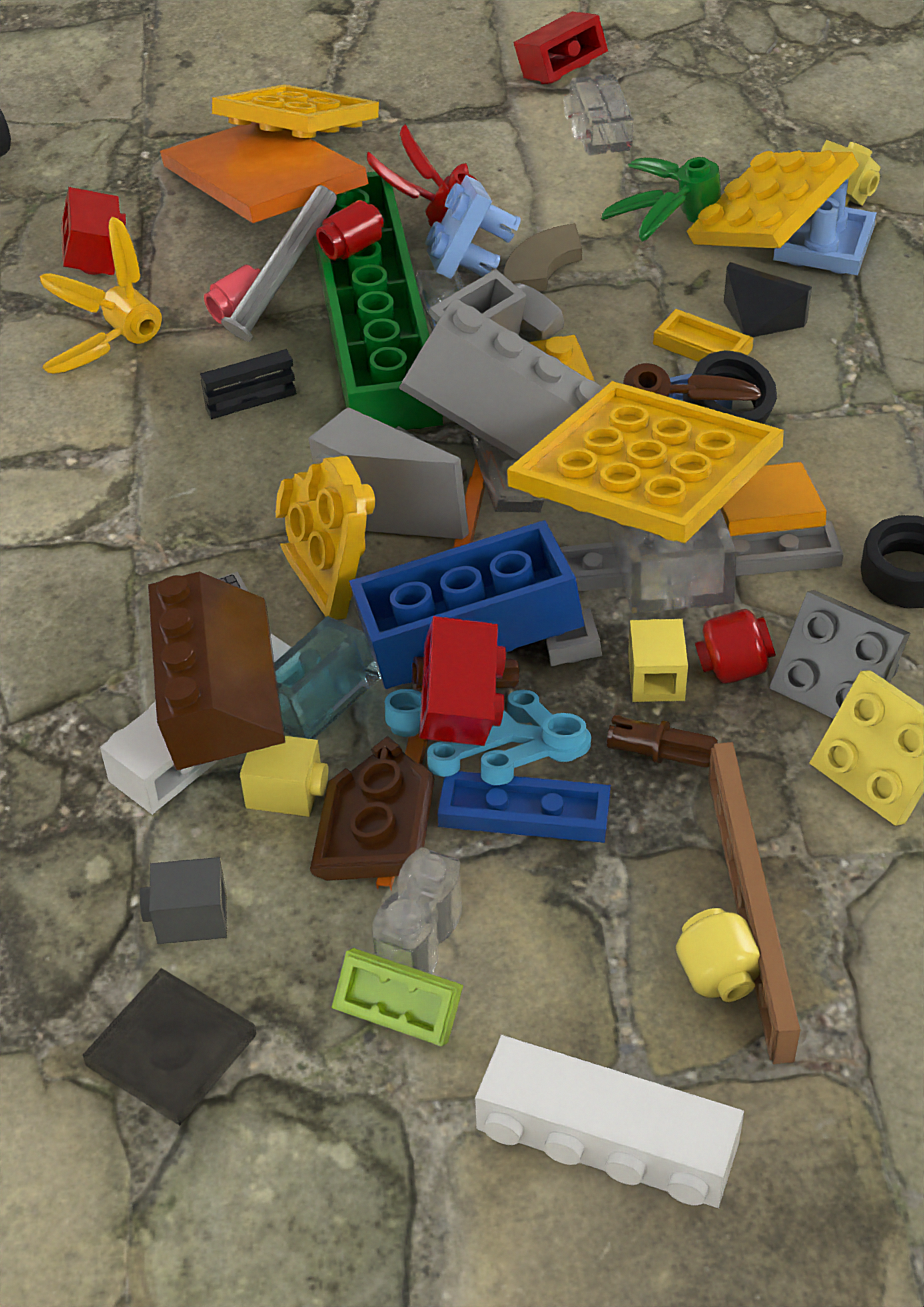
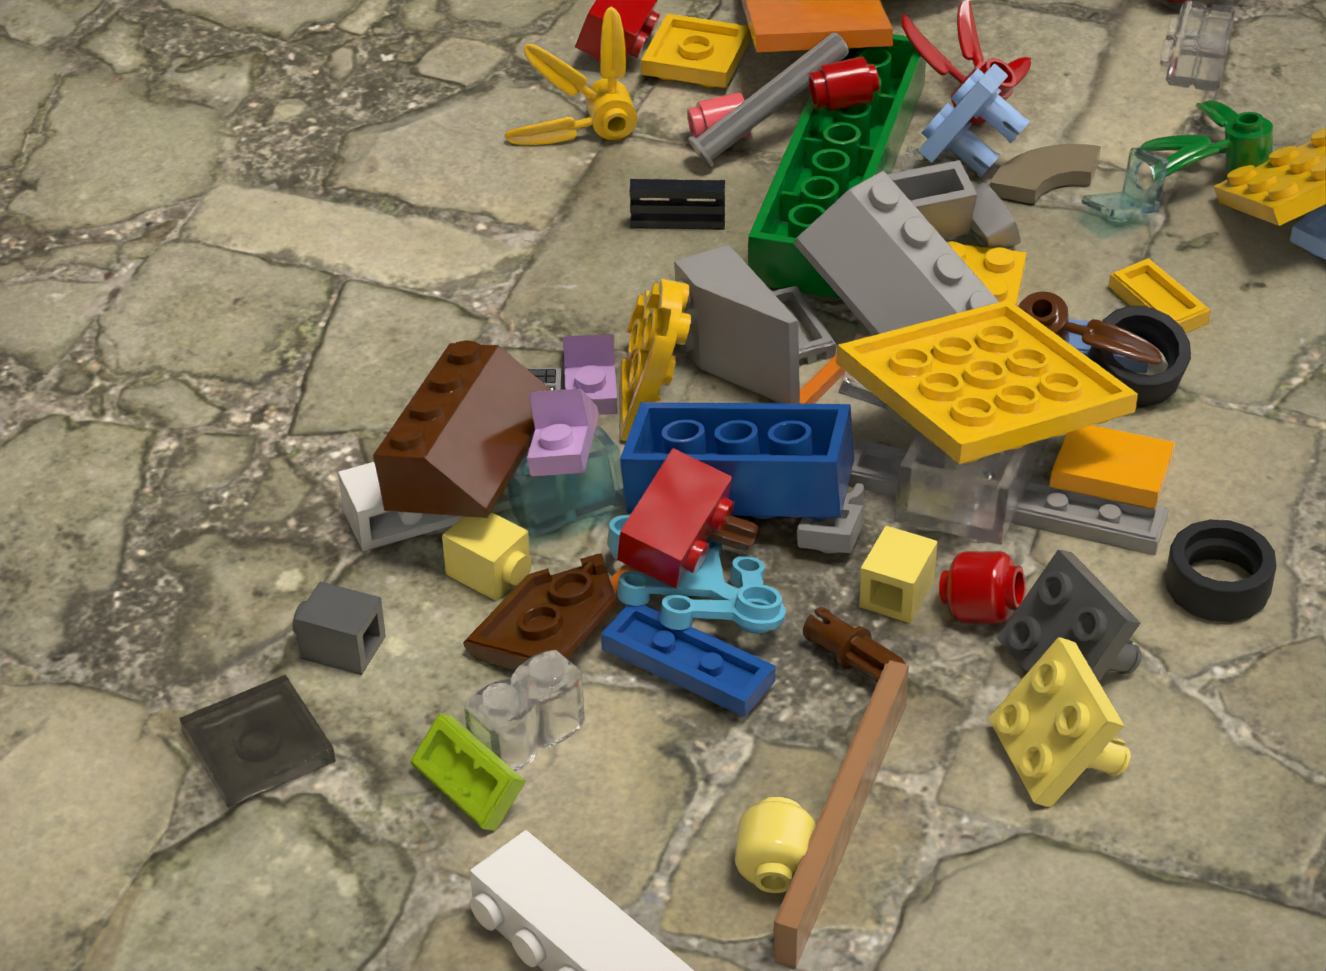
camera: 25 degrees right, 5 degrees down
(175, 238) = (695, 51): none -> yellow plate
(266, 568) = (591, 367): none -> lavender slope
(305, 637) = (562, 433): none -> lavender slope
(628, 262) = (1133, 198): none -> clear light blue bracket
(764, 301) = (1247, 279): black slope -> none

